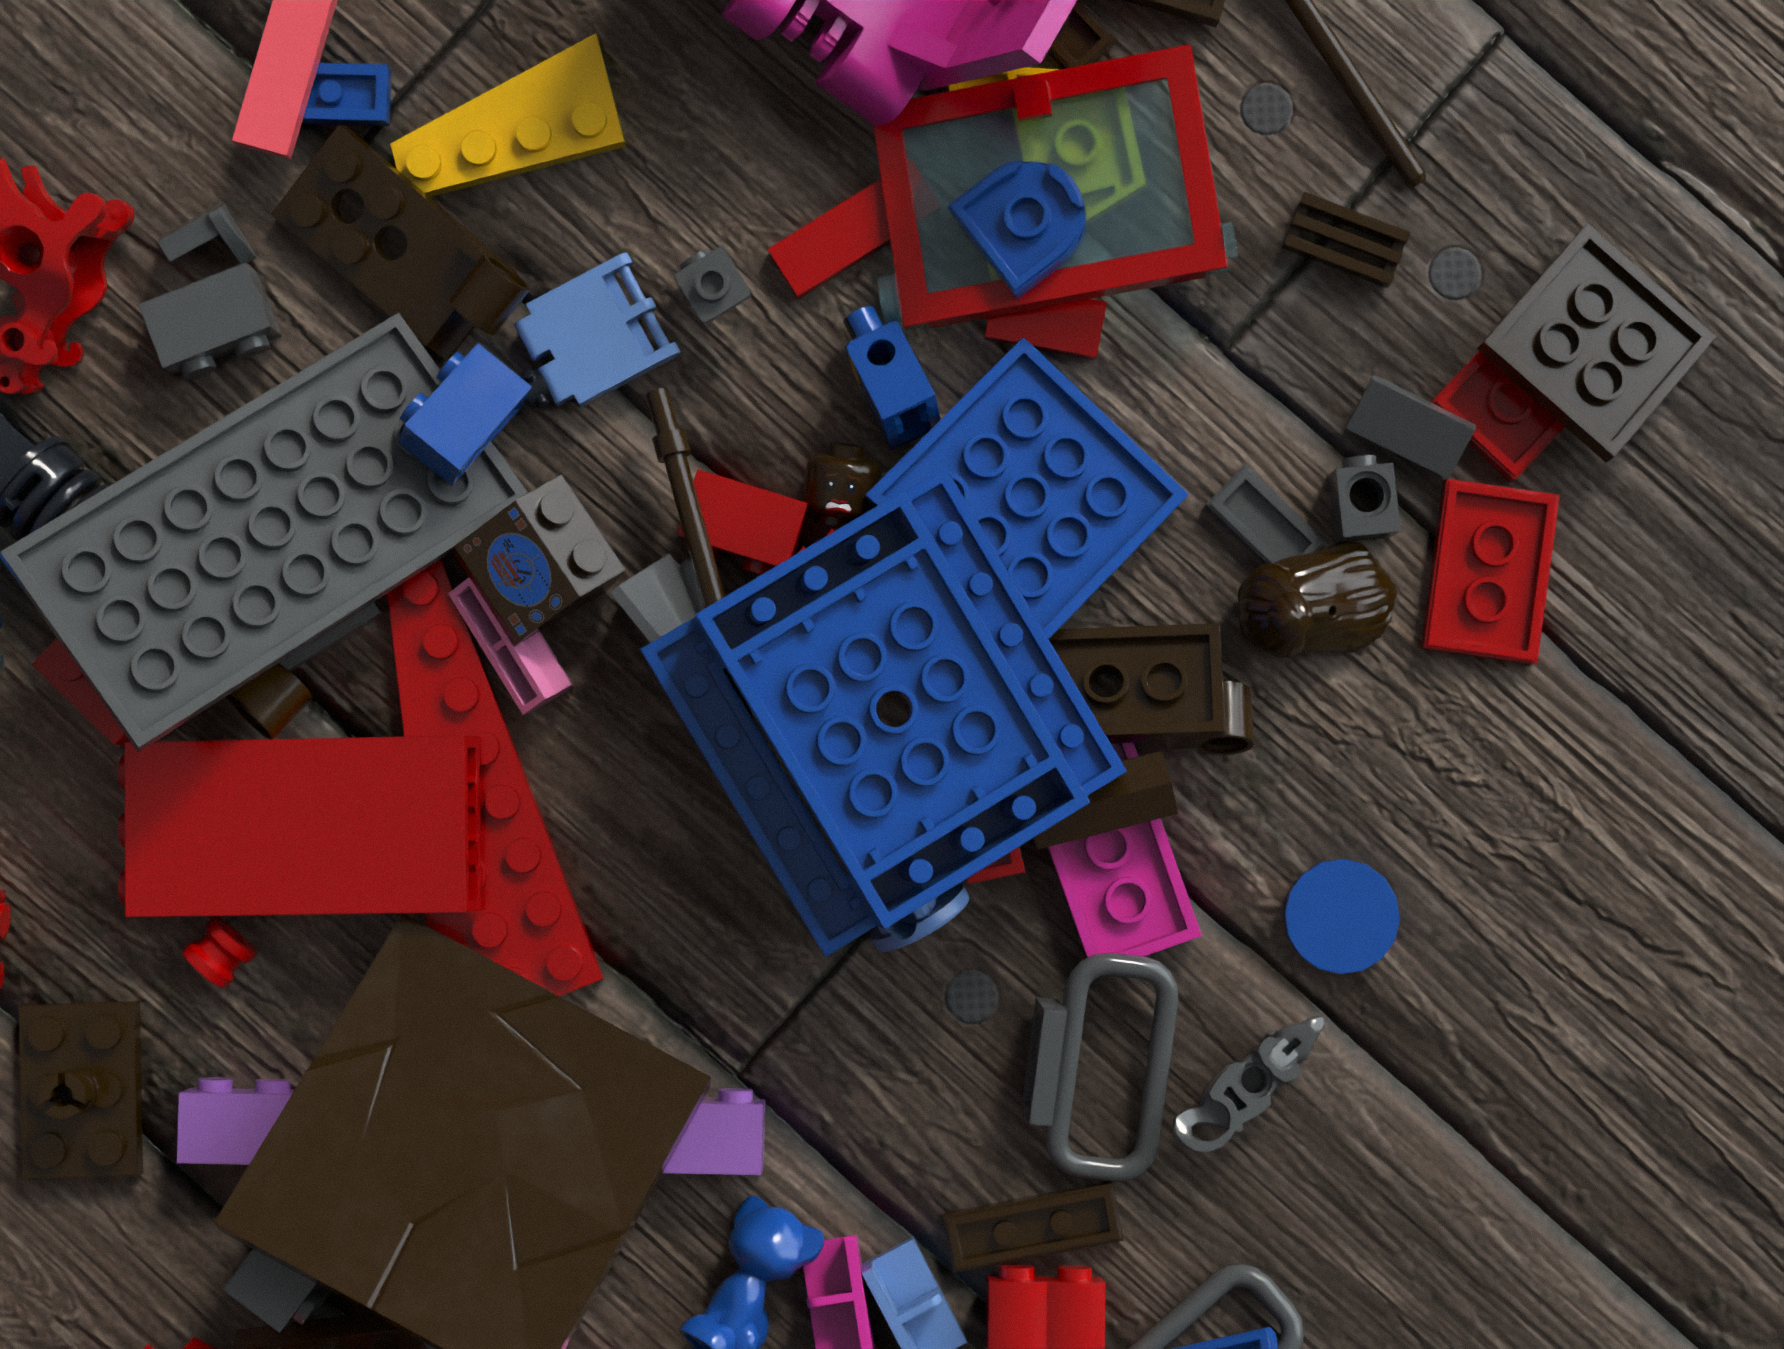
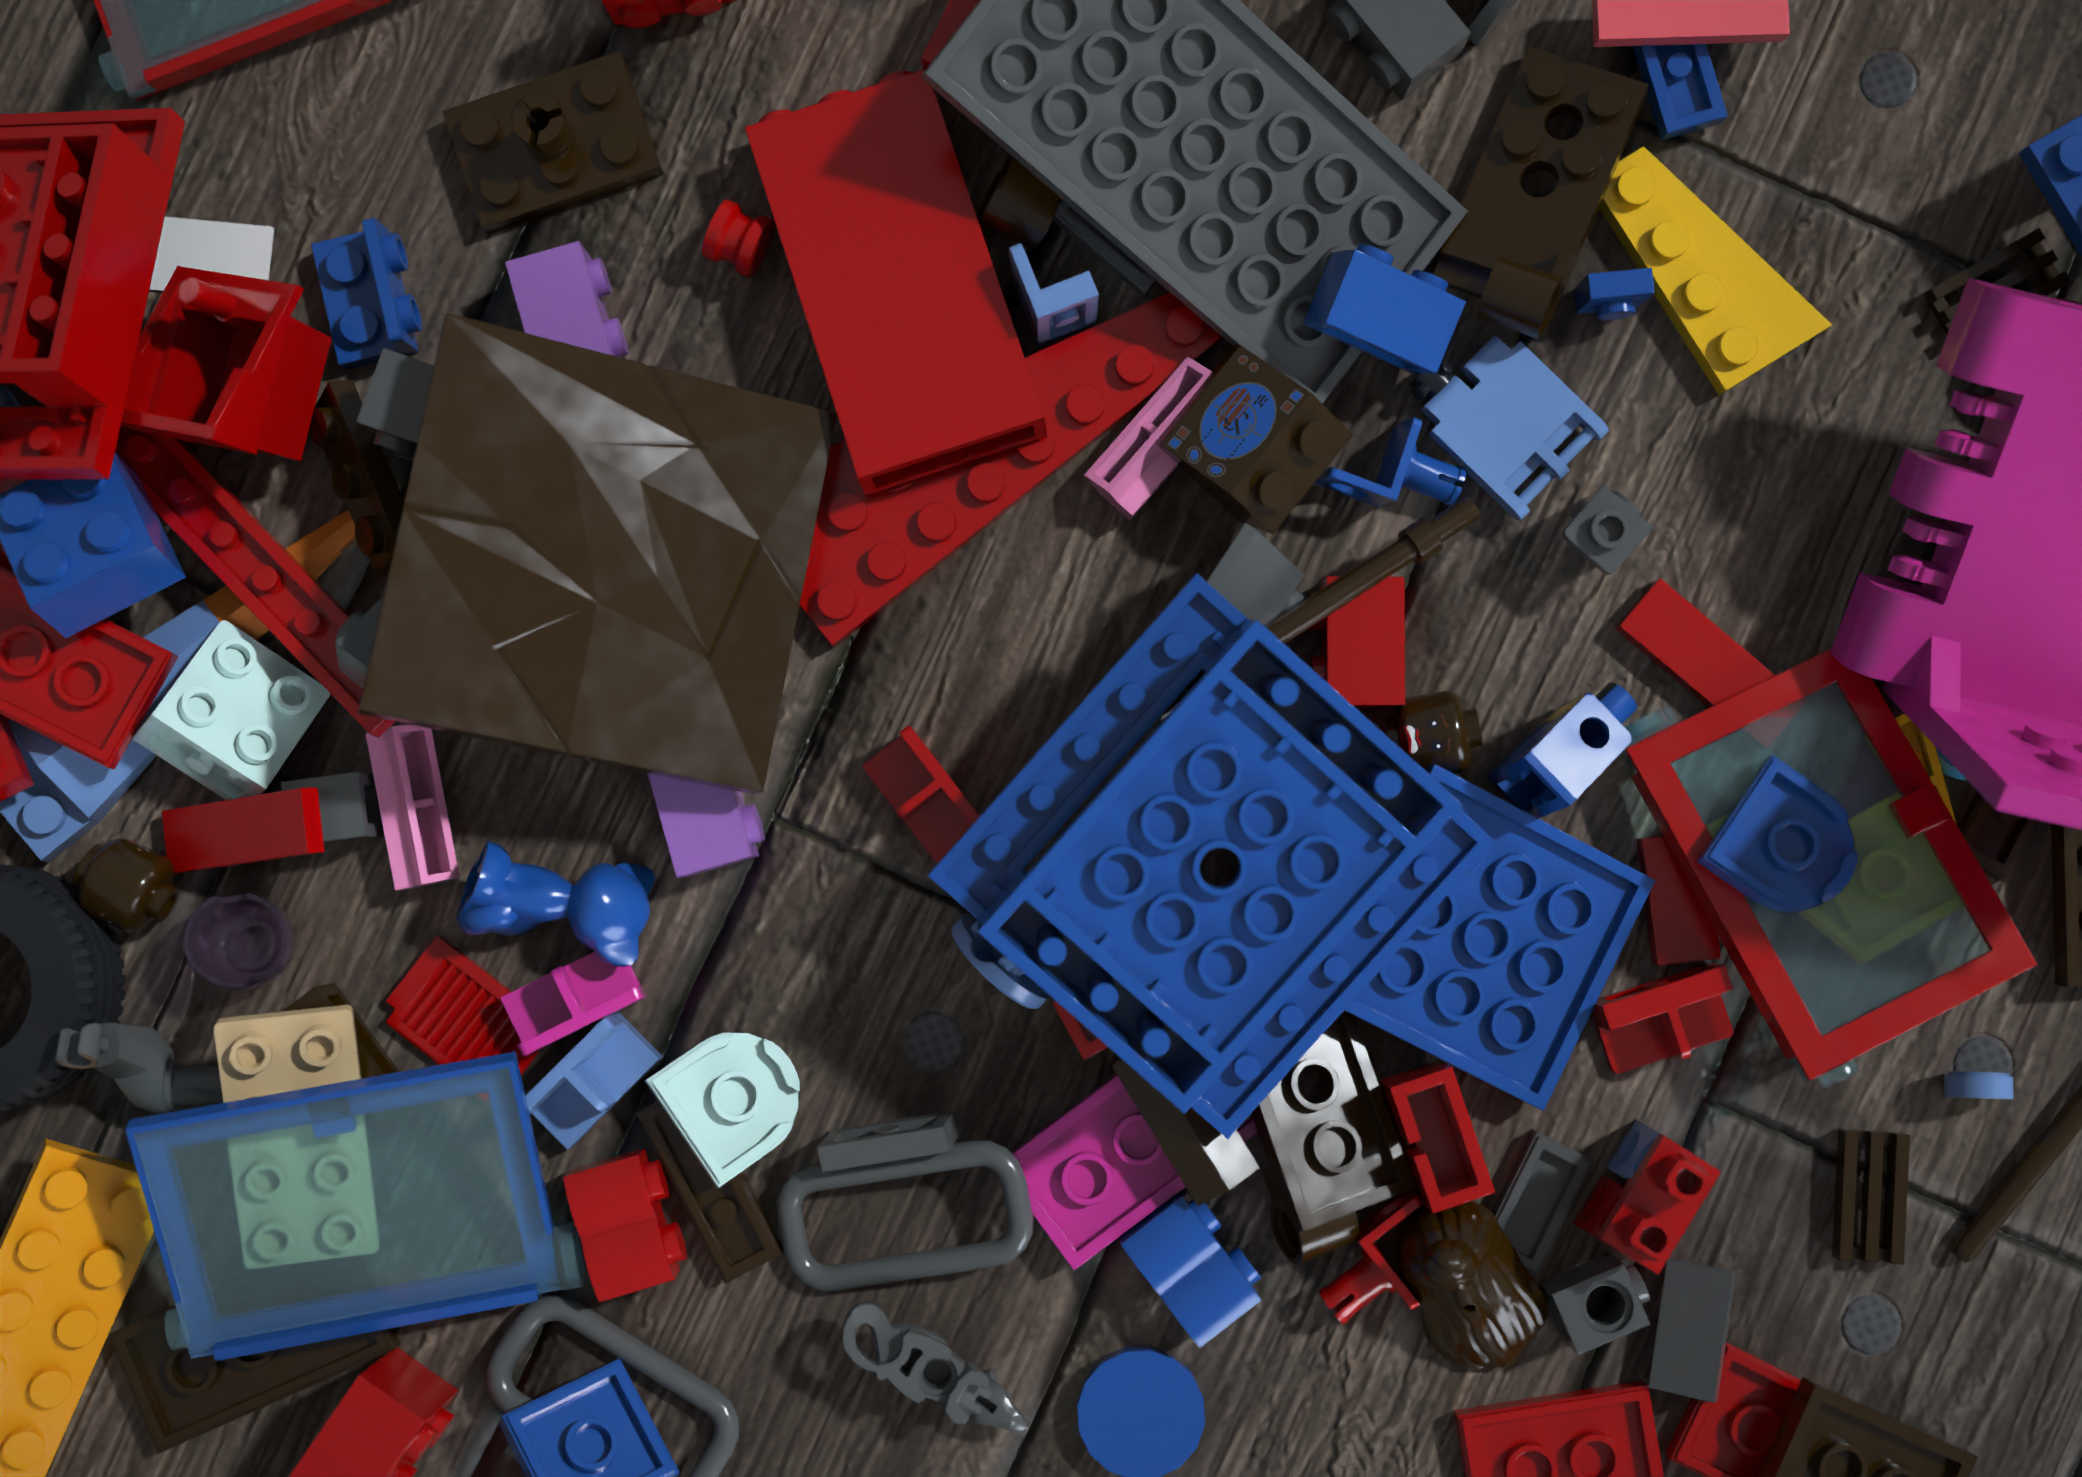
camera: 75 degrees right, 0 degrees up
(163, 1296) = (367, 295): none -> blue bracket
(372, 695) = (1054, 309): none -> medium blue panel
(510, 210) = (1614, 293): none -> blue plate
(603, 441) = (1399, 469): none -> blue bracket
(753, 940) = (921, 792): none -> red panel
(967, 1188) = (730, 1100): none -> light aqua tile
(1143, 366) = (1664, 1017): none -> red panel
(1200, 588) = (1440, 1136): none -> red piece
(1230, 834) = (1192, 1268): none -> blue brick
(1279, 121) = (1978, 1085): none -> medium blue tile
(1280, 678) = (1374, 1271): none -> red bracket
(1291, 427) = (1655, 1203): none -> red hips

